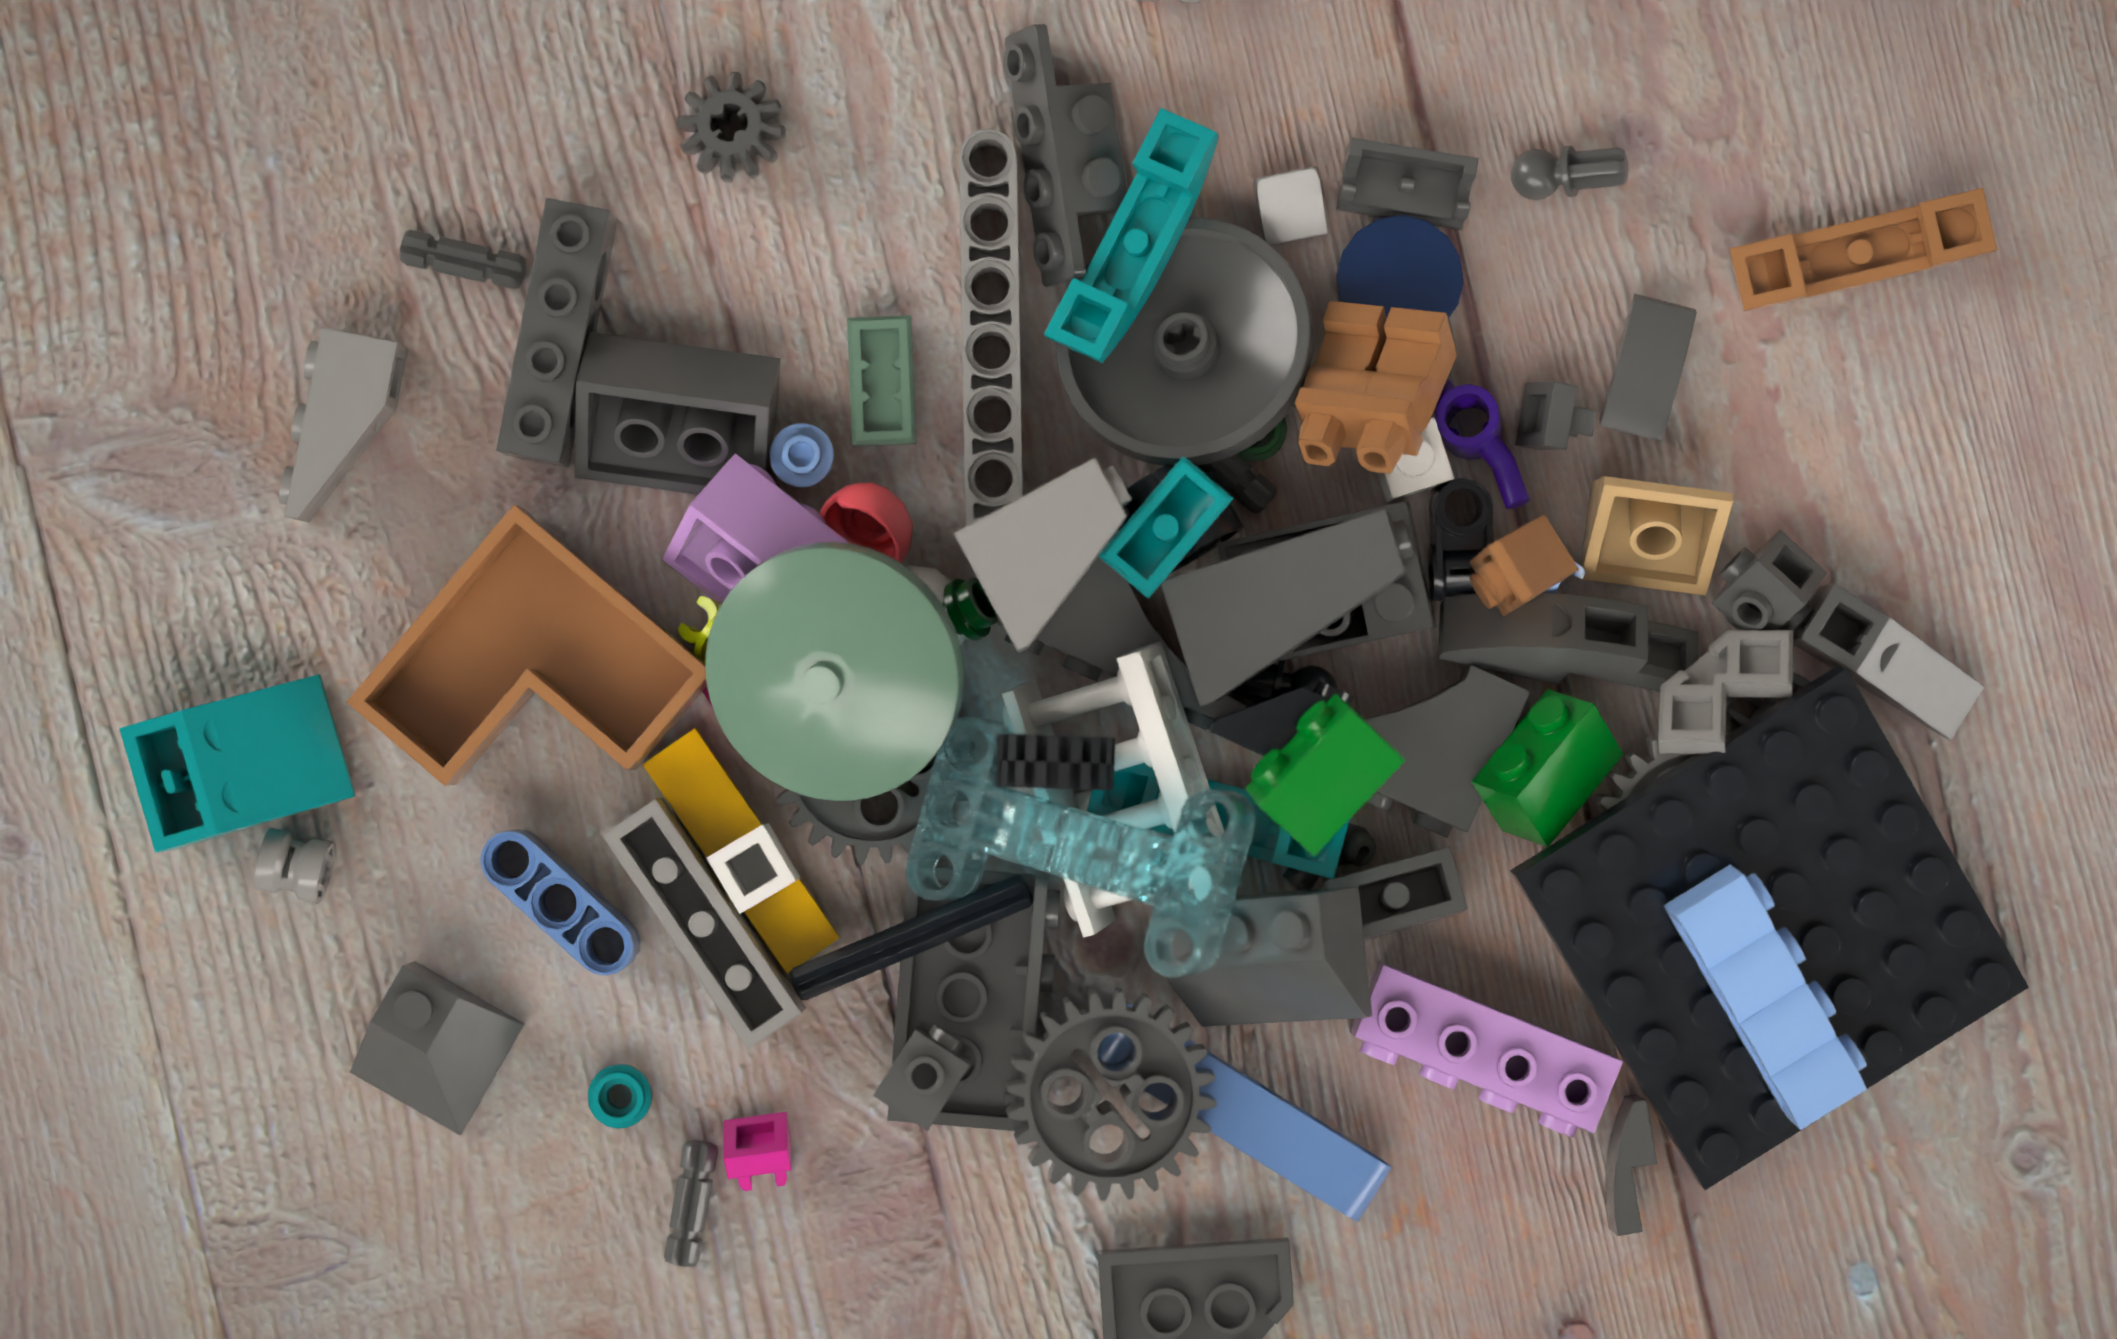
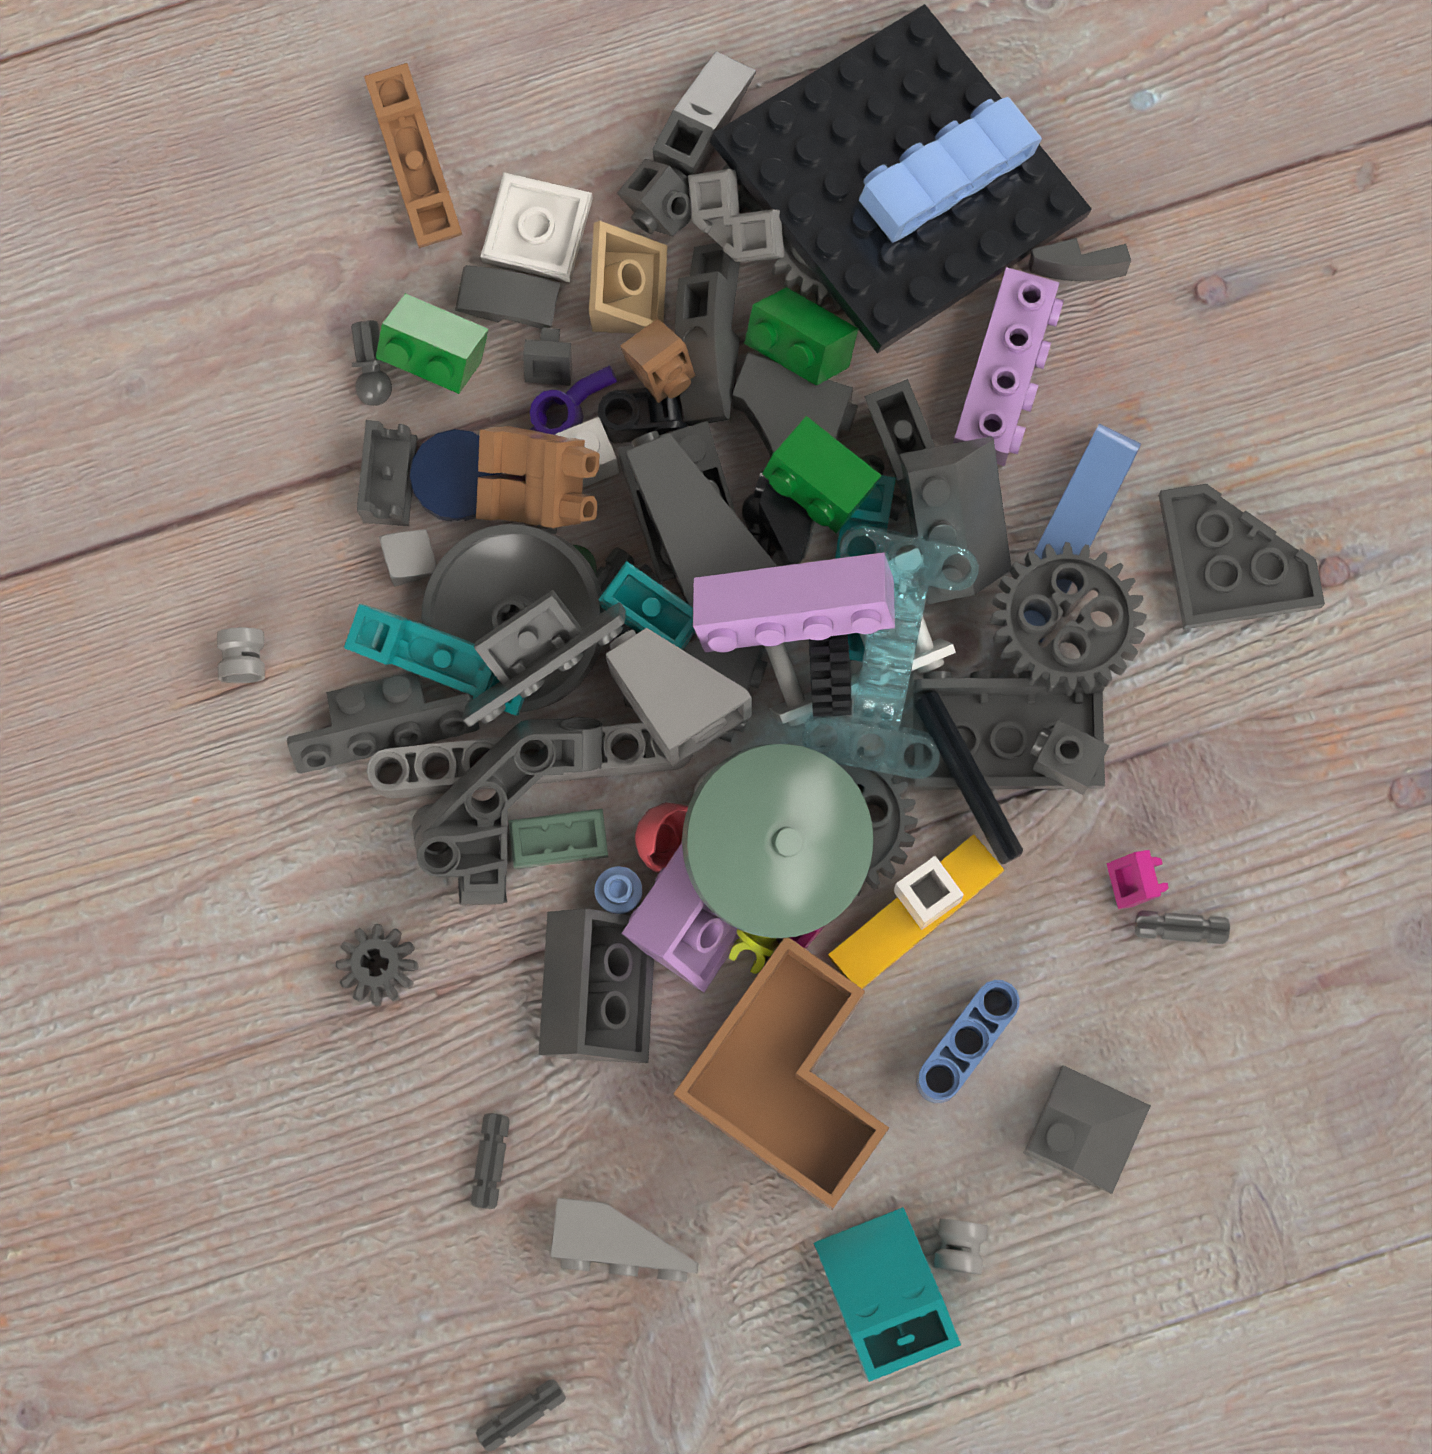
camera: 90 degrees left, 10 degrees down
(132, 275) = (520, 1415): none -> dark grey axle
(554, 331) = (540, 1080): dark grey brick -> none
(605, 1110) = (1118, 976): teal plate -> none
(704, 922) = (972, 929): light grey brick -> none
(885, 257) = (470, 835): none -> dark grey connector
(969, 608) = (720, 750): dark green plate -> none
(1122, 364) = (532, 647): none -> dark grey bracket
(1141, 720) = (794, 603): none -> lavender brick
(1584, 257) = (431, 343): none -> green brick
(1745, 415) = (536, 227): none -> white plate

